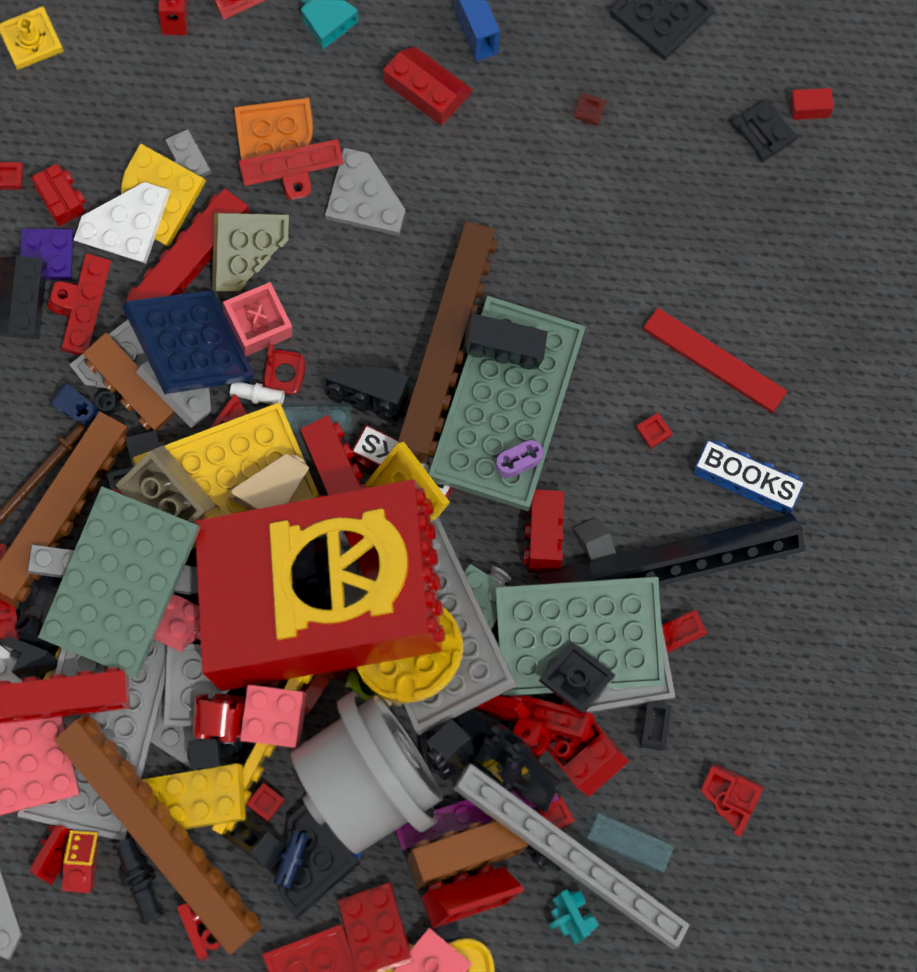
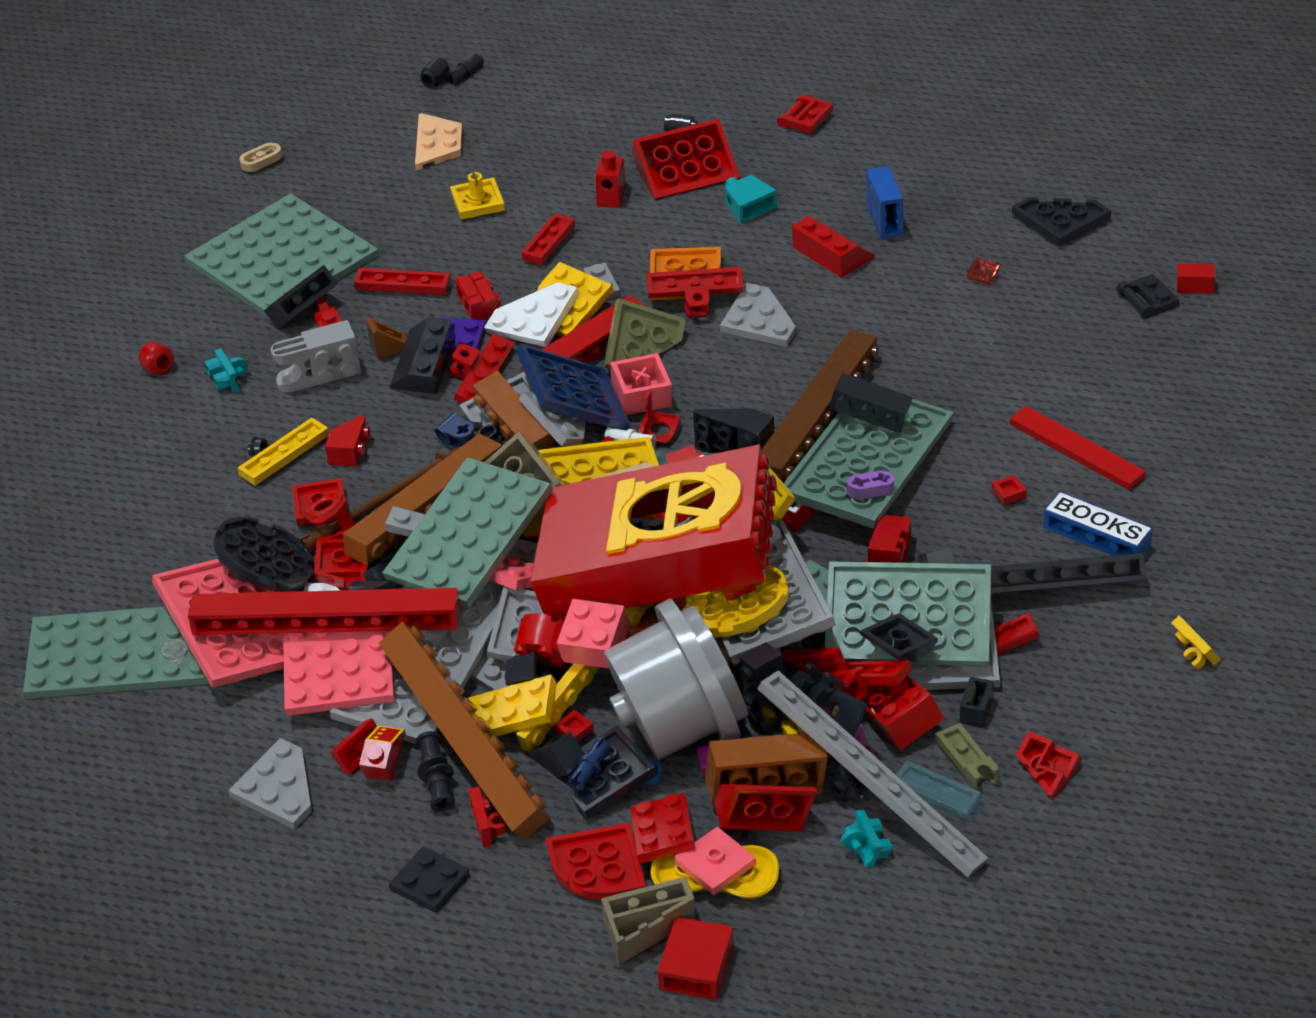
camera: 15 degrees right, 30 degrees down
(119, 97) = (548, 239): none -> red plate
(654, 796) = (967, 756): none -> olive plate
(851, 616) = (1200, 647): none -> yellow plate

